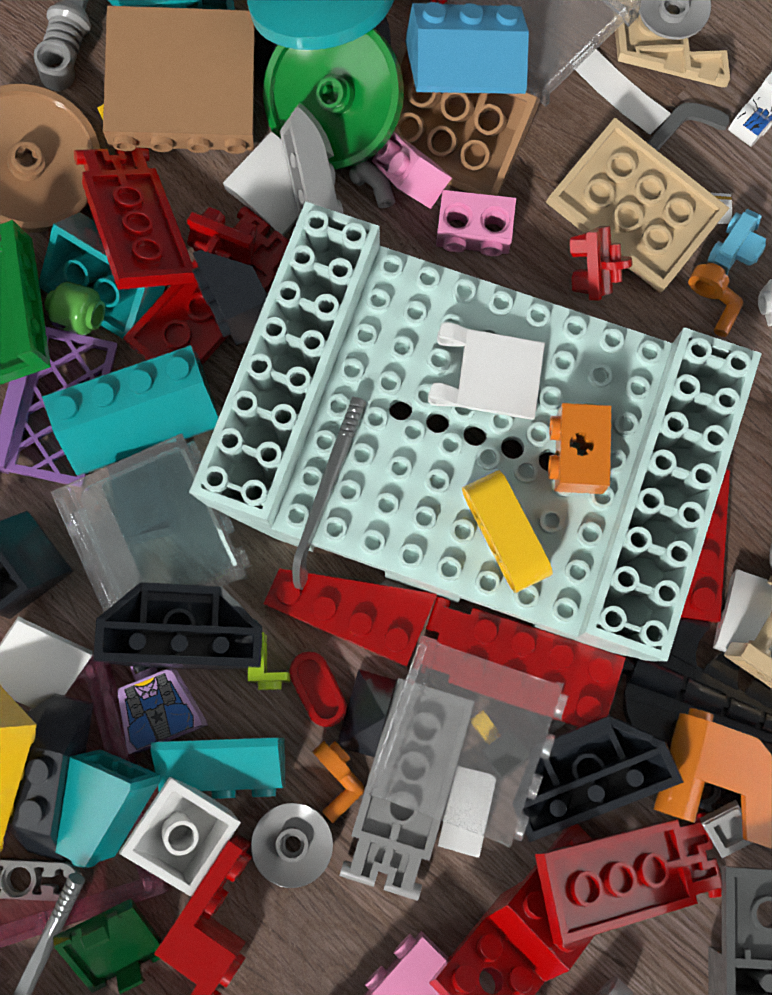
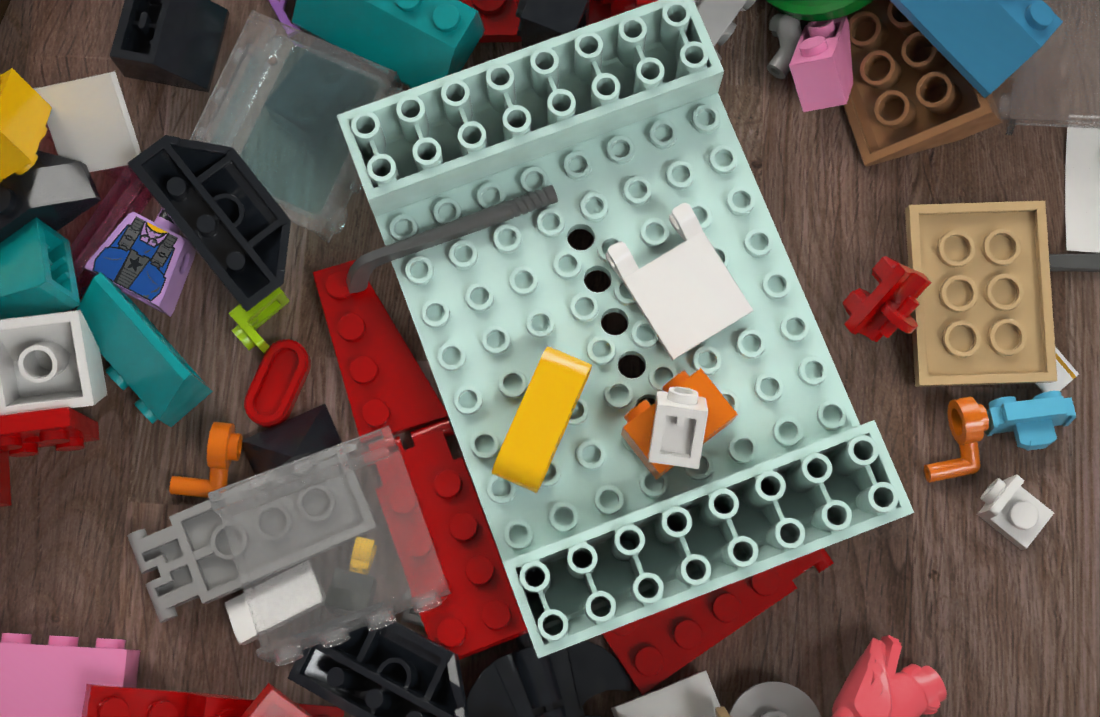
camera: 50 degrees right, 0 degrees up
(275, 860) = (99, 468): light grey dish -> none
(476, 213) = (838, 158): bright pink brick -> none
(594, 447) = (678, 428): none -> white bracket

